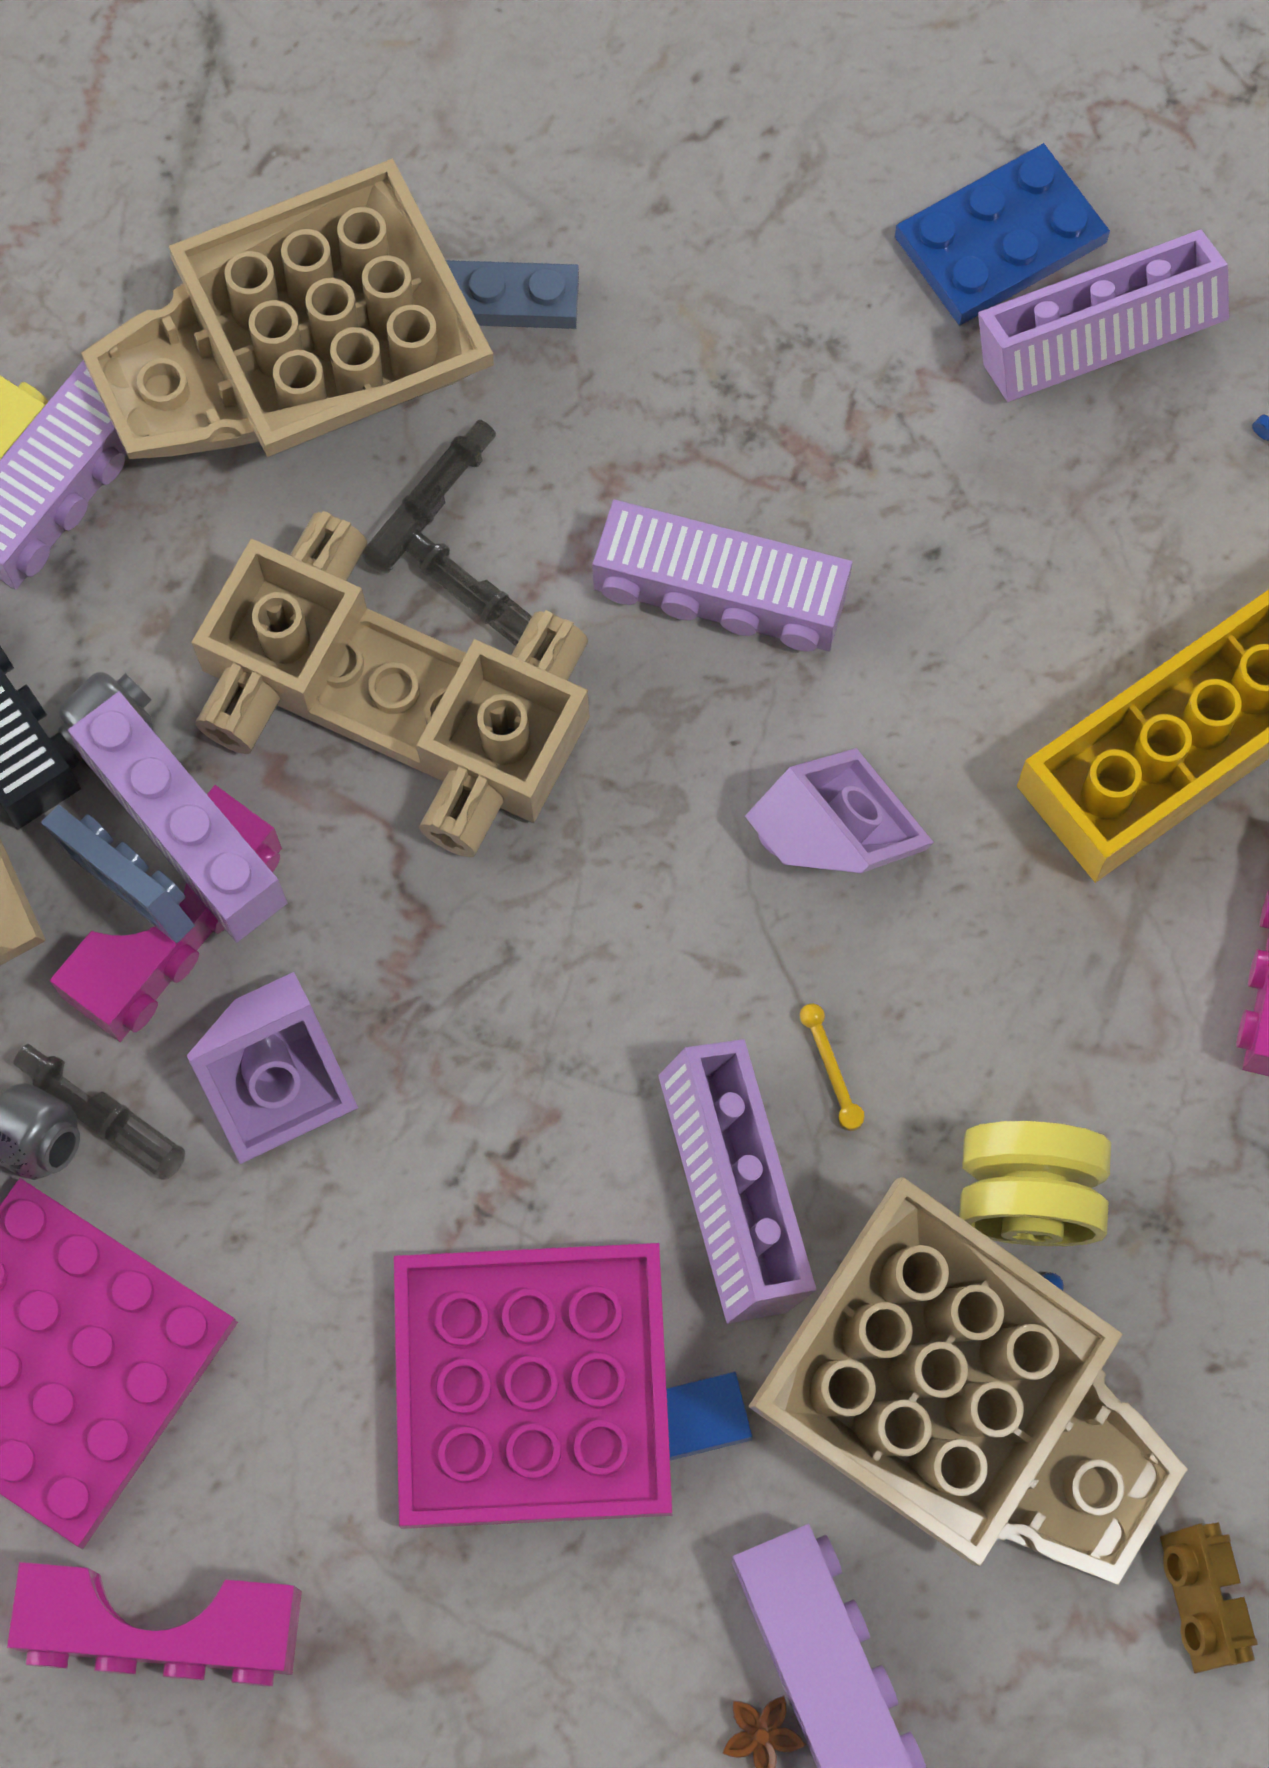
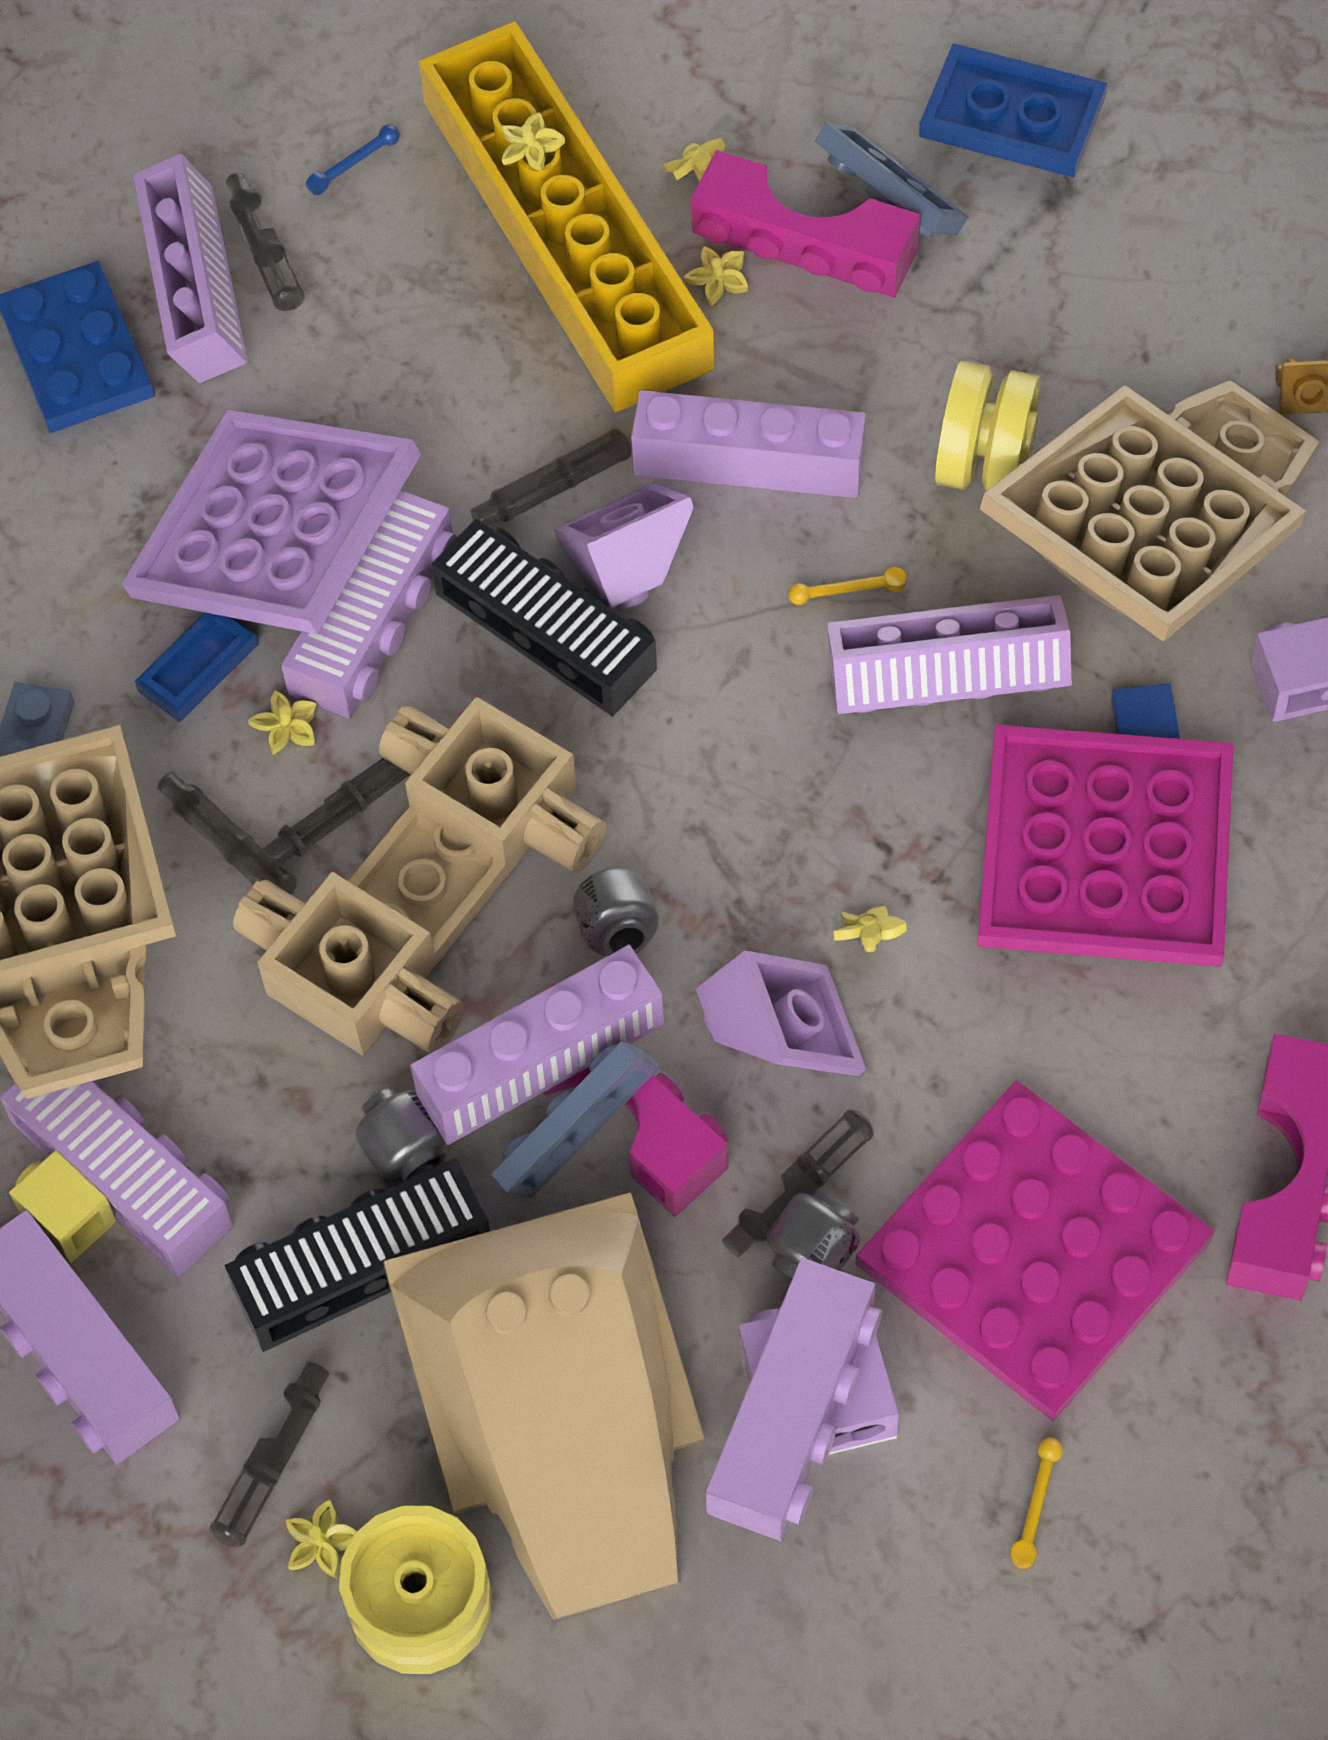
camera: 80 degrees left, 10 degrees down
(380, 880) = (615, 911): none -> flat silver head
(399, 1142) = (871, 927): none -> light yellow plant
(575, 526) = (286, 722): none -> light yellow plant
(633, 429) = (196, 664): none -> blue tile
(730, 754) = (545, 616): none -> black brick
(791, 458) = (272, 520): none -> lavender plate
(915, 735) = (554, 478): none -> clear smoke piece
(986, 930) = (748, 444): none -> lavender brick
(1170, 388) = (263, 243): none -> clear smoke piece
(1229, 868) = (719, 274): none -> light yellow plant

